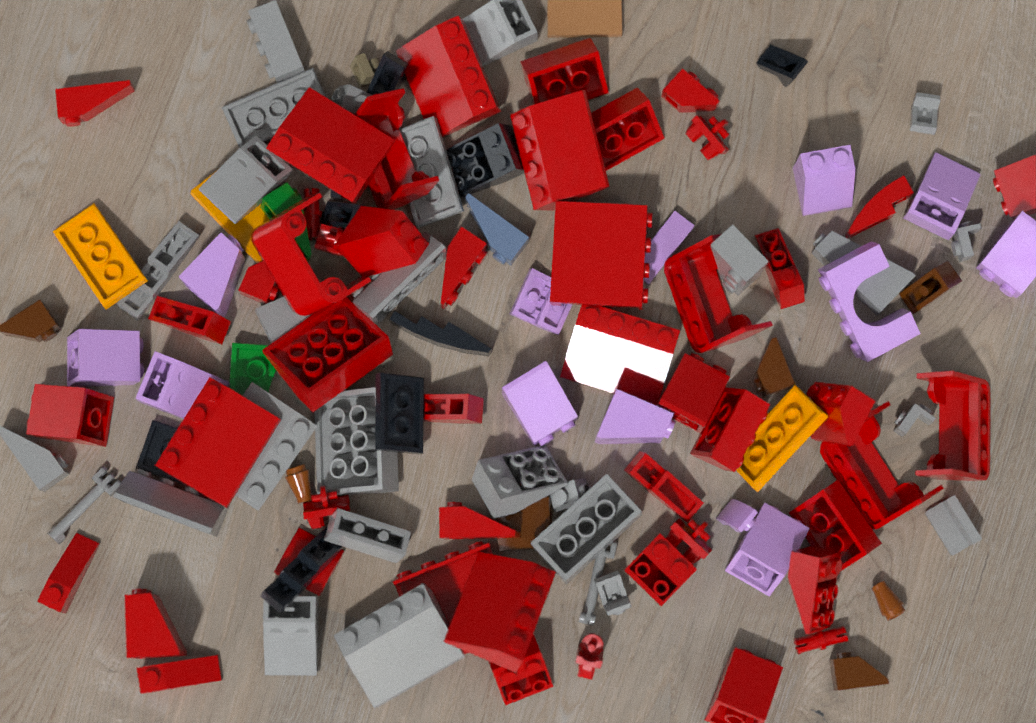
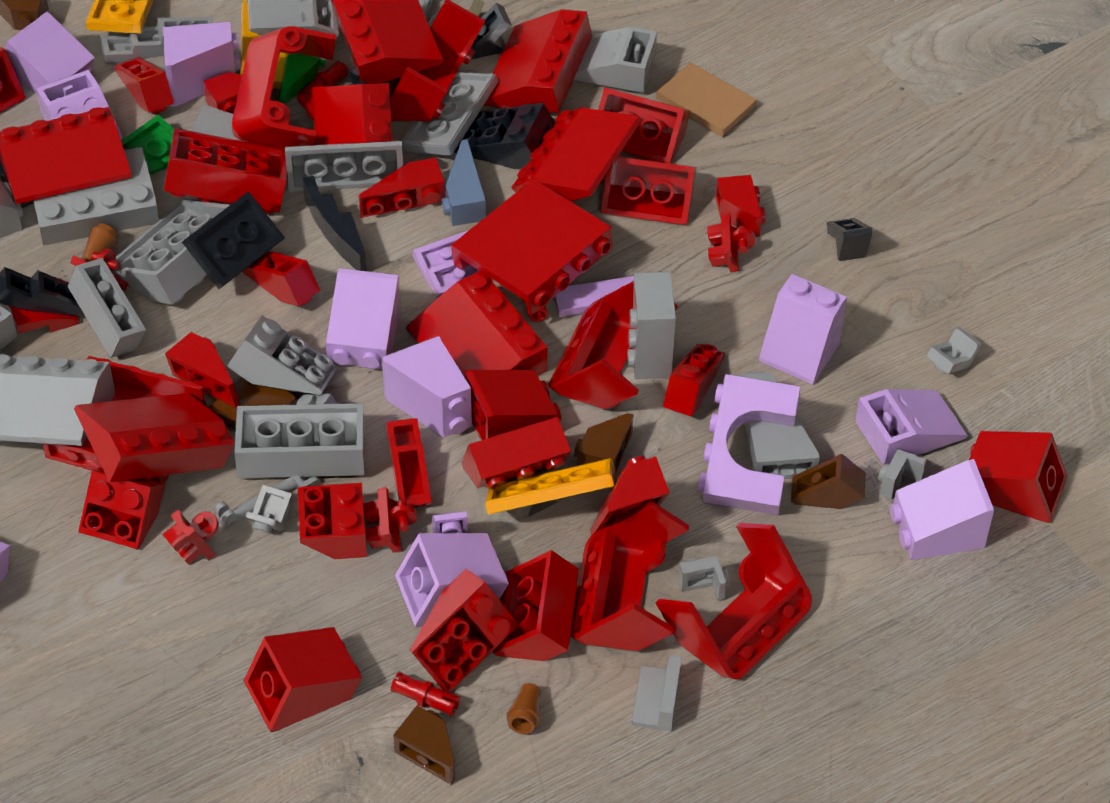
camera: 40 degrees right, 30 degrees down
(880, 206) = (836, 391): red slope -> none

